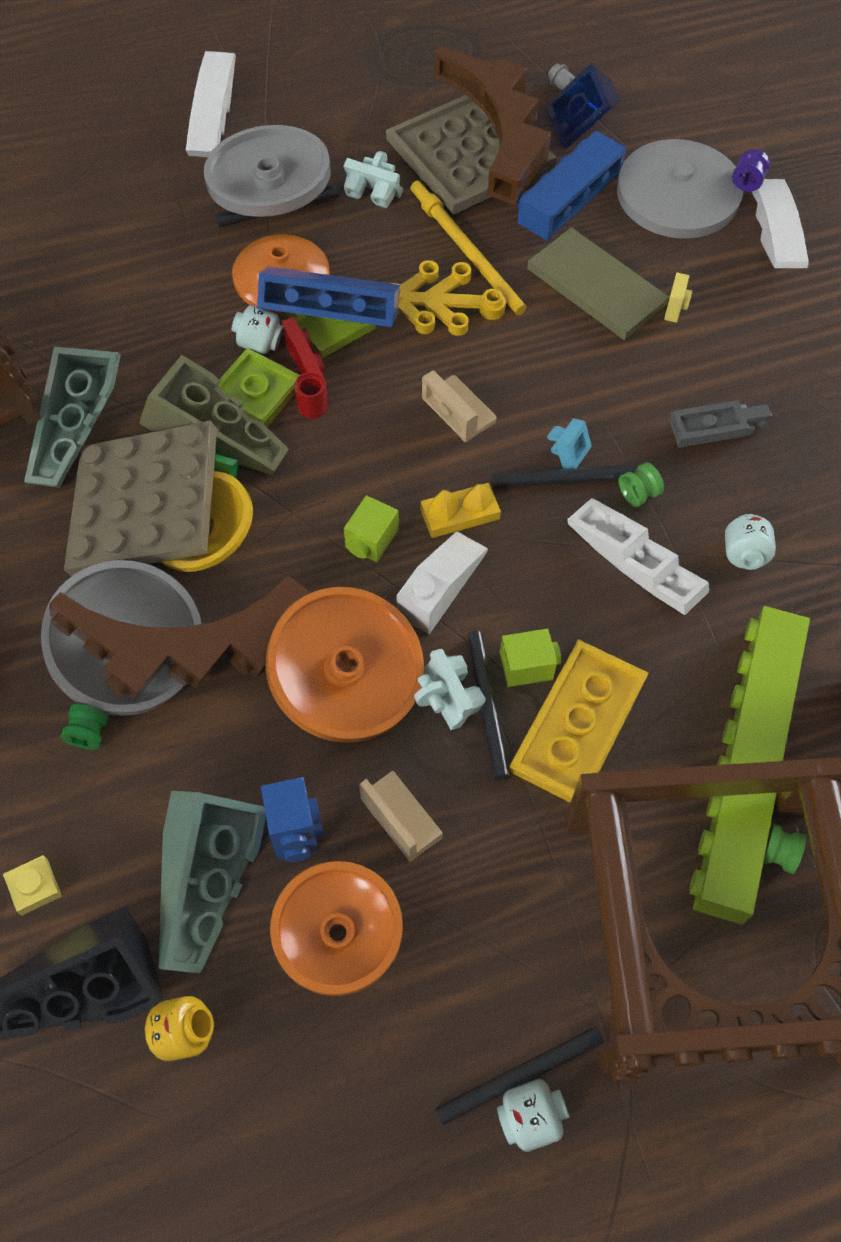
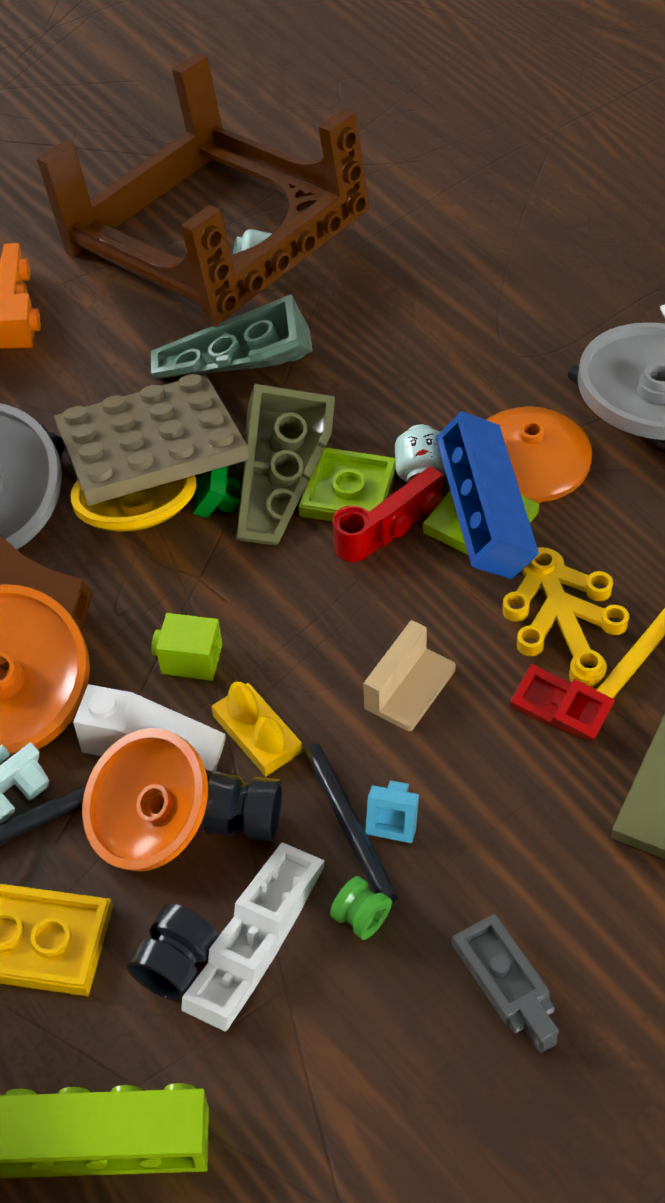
camera: 75 degrees right, 10 degrees down
(518, 325) = (561, 704): none -> red slope
(529, 657) = (65, 849): lime brick -> none
(536, 529) = (243, 806): none -> black wheel
(539, 580) = (126, 797): none -> orange dish
(643, 604) = (169, 958): none -> black wheel
(750, 540) = (317, 1062): light aqua head -> none

